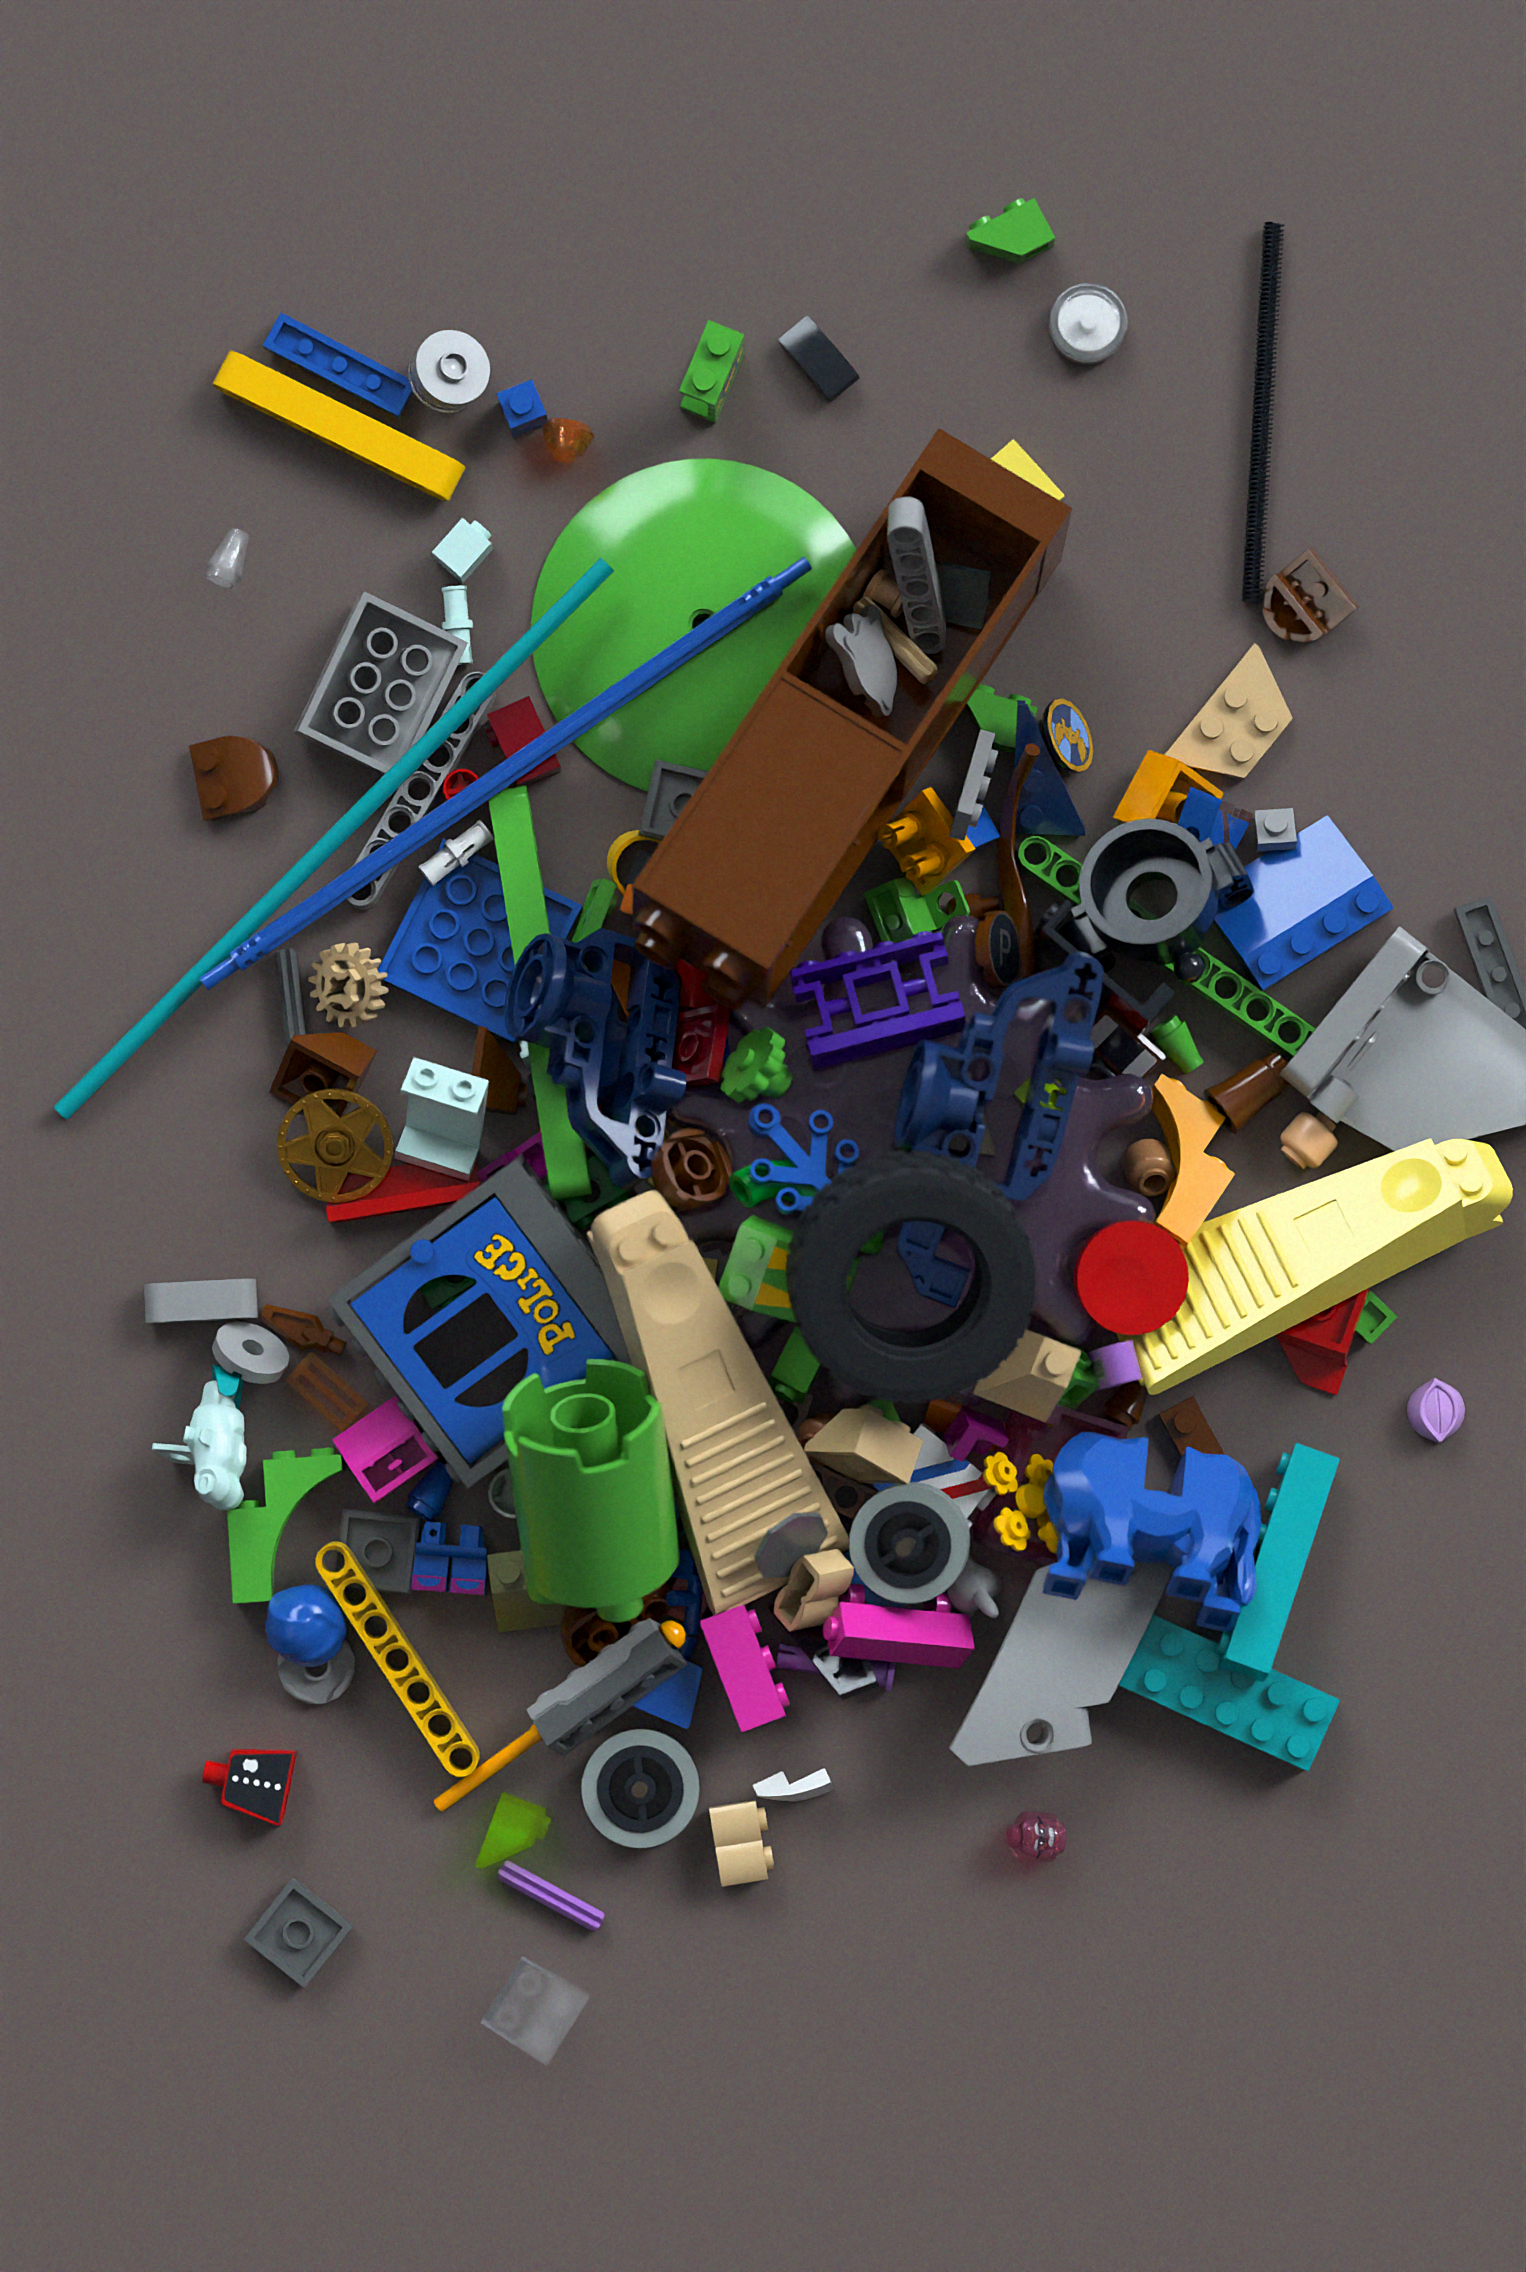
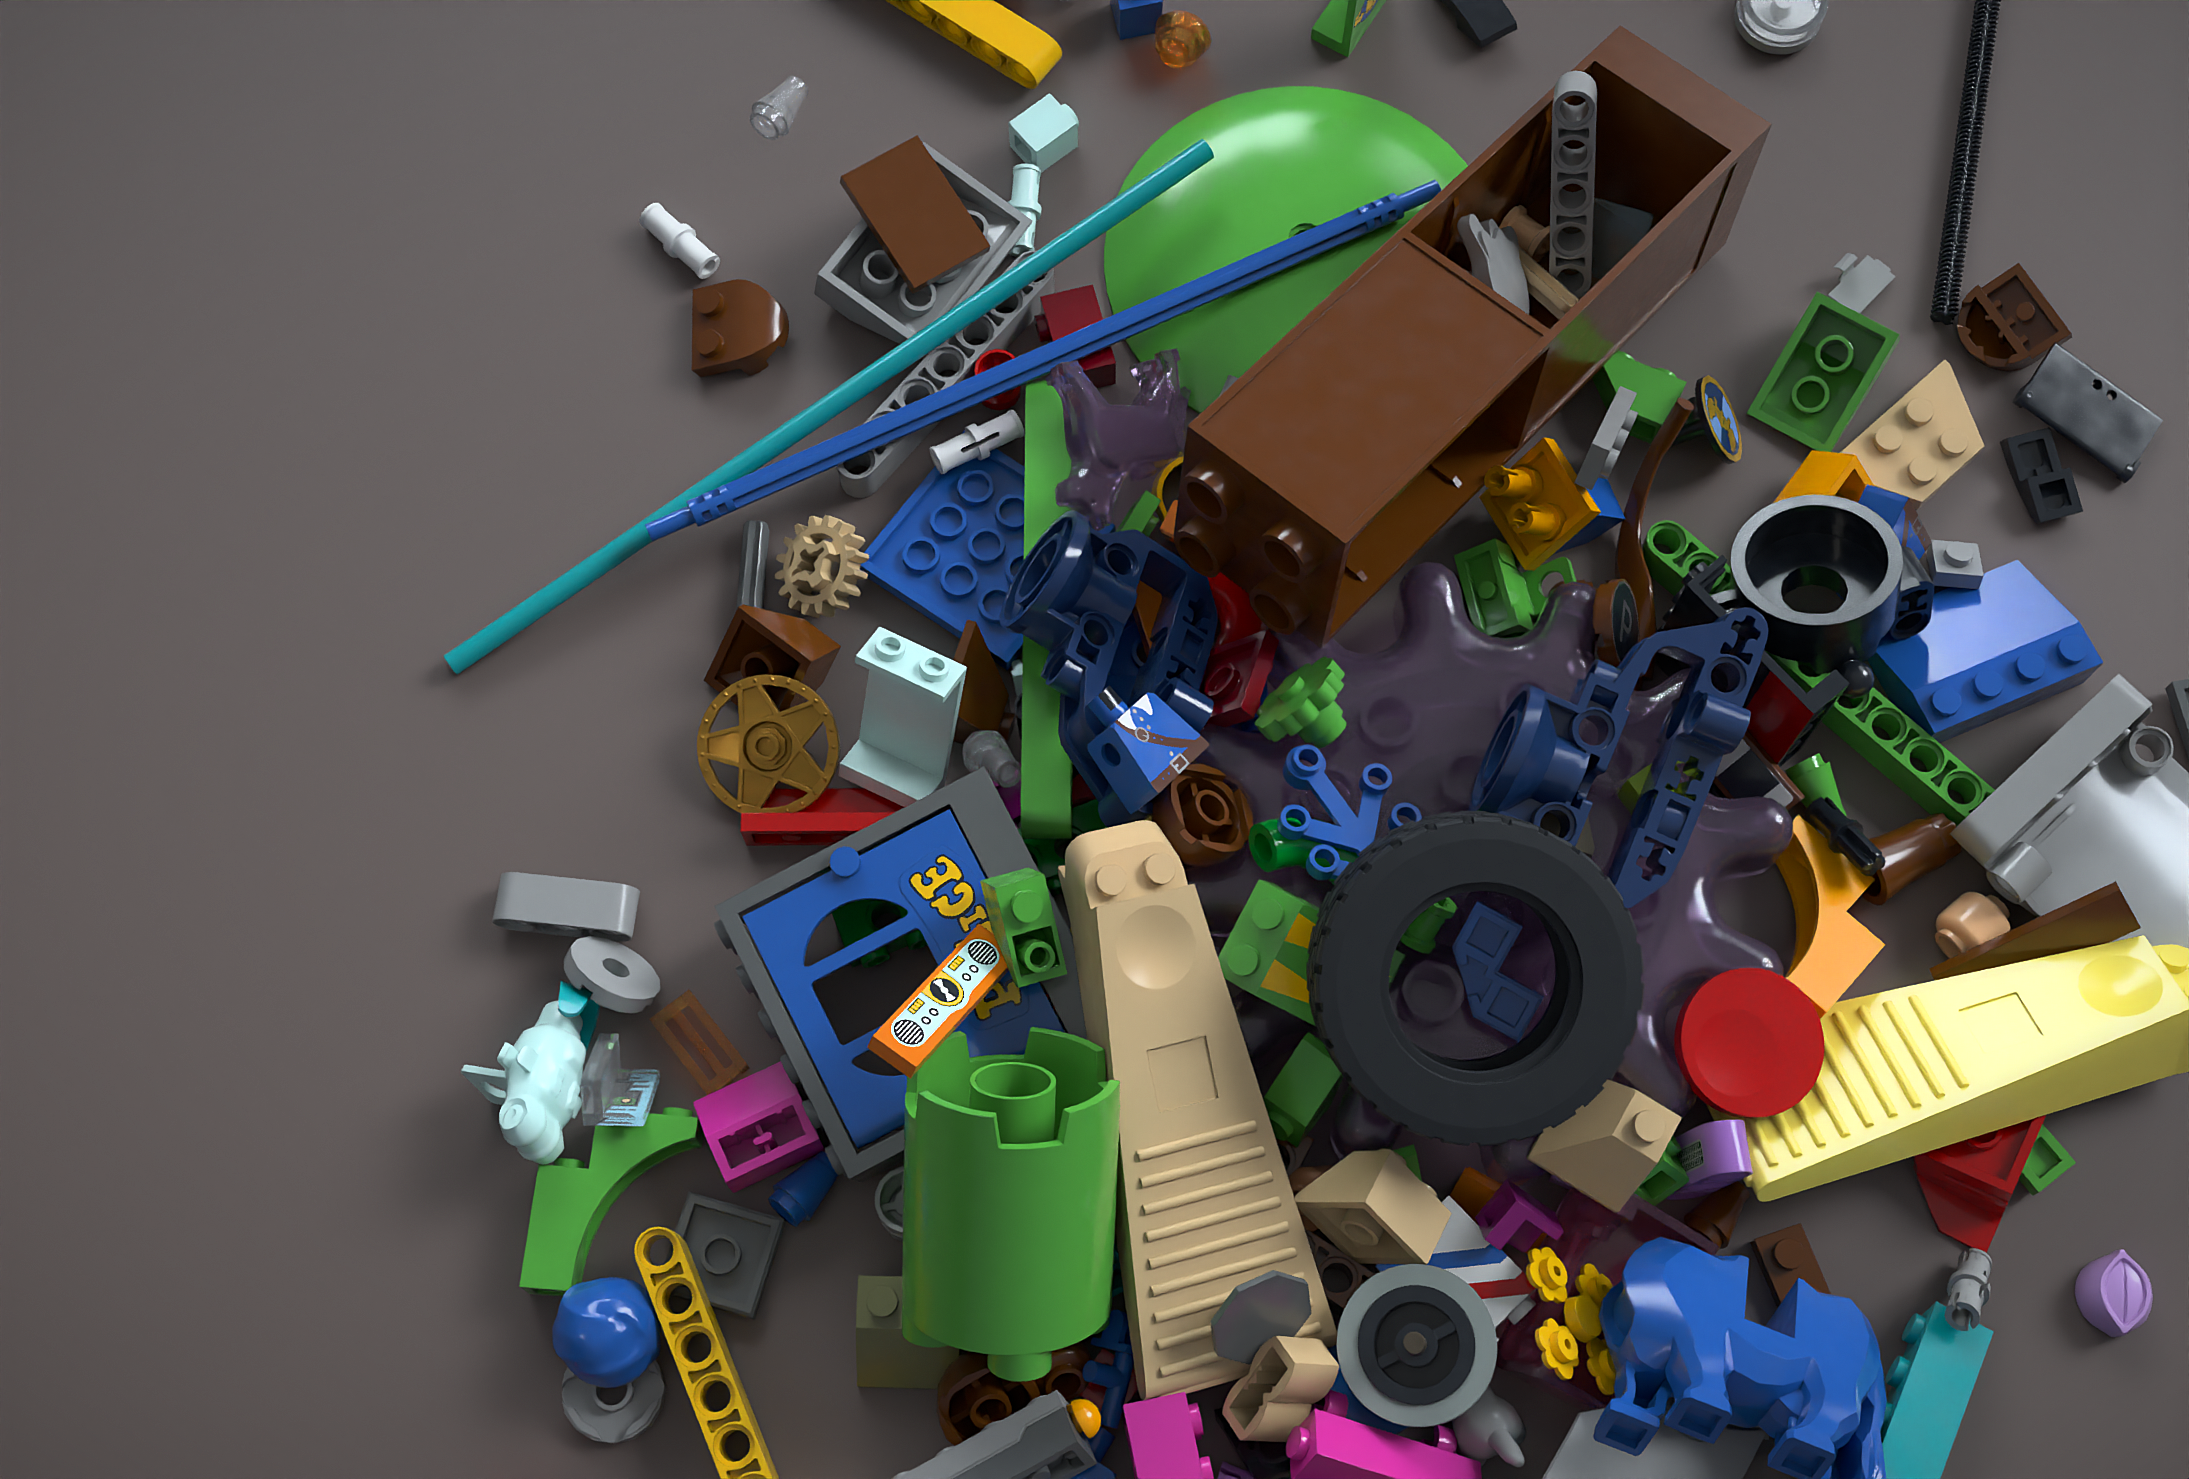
camera: 10 degrees right, 15 degrees down
(168, 701) = (679, 240): none -> white pin
(276, 1443) = (615, 1094): none -> clear panel
(302, 1329) = (684, 963): reddish brown piece -> none
(369, 662) = (914, 214): none -> reddish brown tile
(433, 1561) = (791, 1275): blue hips -> none
(515, 1132) = (991, 750): none -> clear cone
(520, 1355) = (940, 1003): none -> tile
(568, 1284) = (1024, 925): none -> bright green slope
(576, 841) = (1116, 438): none -> clear purple animal
(636, 1129) = (1141, 746): none -> blue torso
(884, 1028) = (1469, 679): dark purple fence -> none
(1044, 800) = (1683, 480): dark blue wing -> none
(1148, 1167) = (1773, 920): medium nougat head -> none
(1154, 674) = (1823, 373): none -> bright green slope
(1179, 579) = (1860, 283): none -> light grey piece
(1197, 1088) = (1845, 836): none -> black axle
(1319, 1429) = (1968, 1289): none -> light grey pin
(1342, 736) = (2038, 476): none -> black slope
(1372, 676) = (2106, 429): none -> black door
(1380, 1137) = (2077, 925): none -> reddish brown tile

